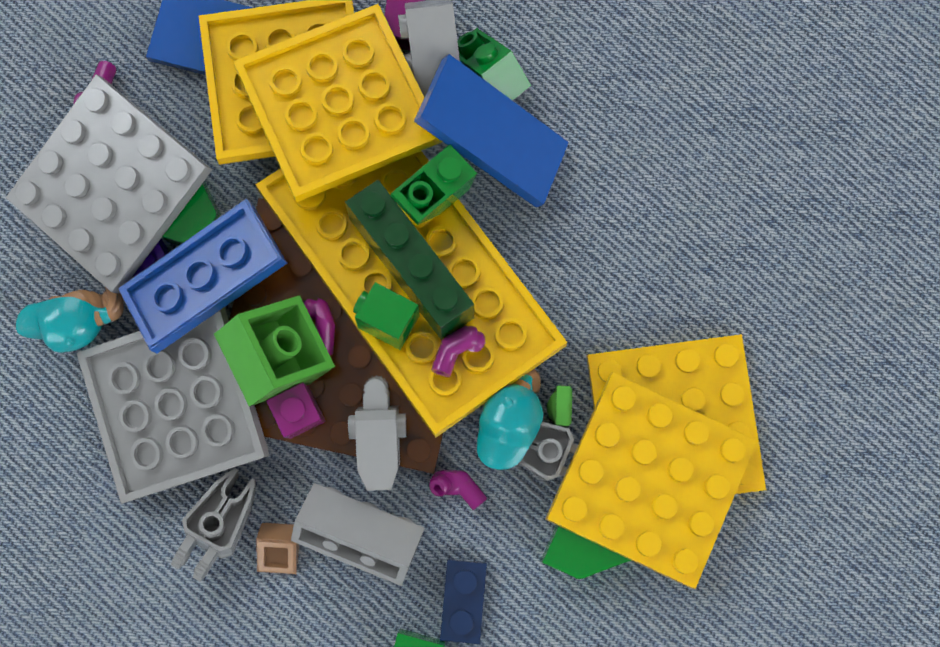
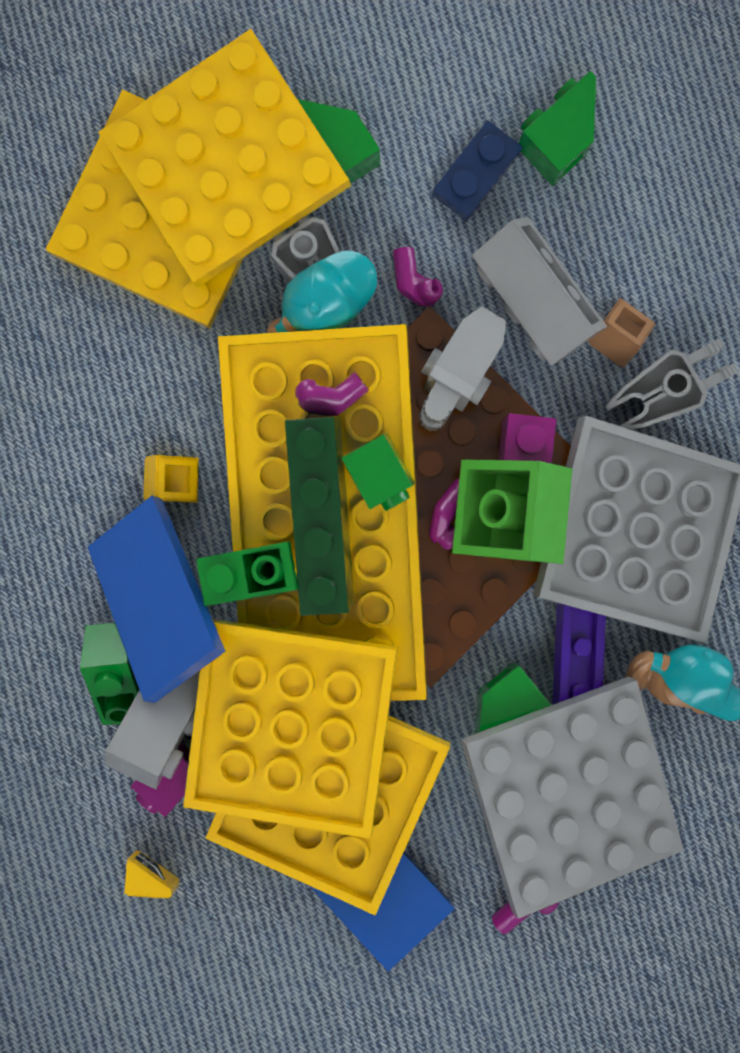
camera: 150 degrees left, 5 degrees up
(201, 276) = (537, 635): tile -> none
(541, 228) = (171, 478): none -> yellow slope
(560, 406) = (265, 289): bright green tile -> none

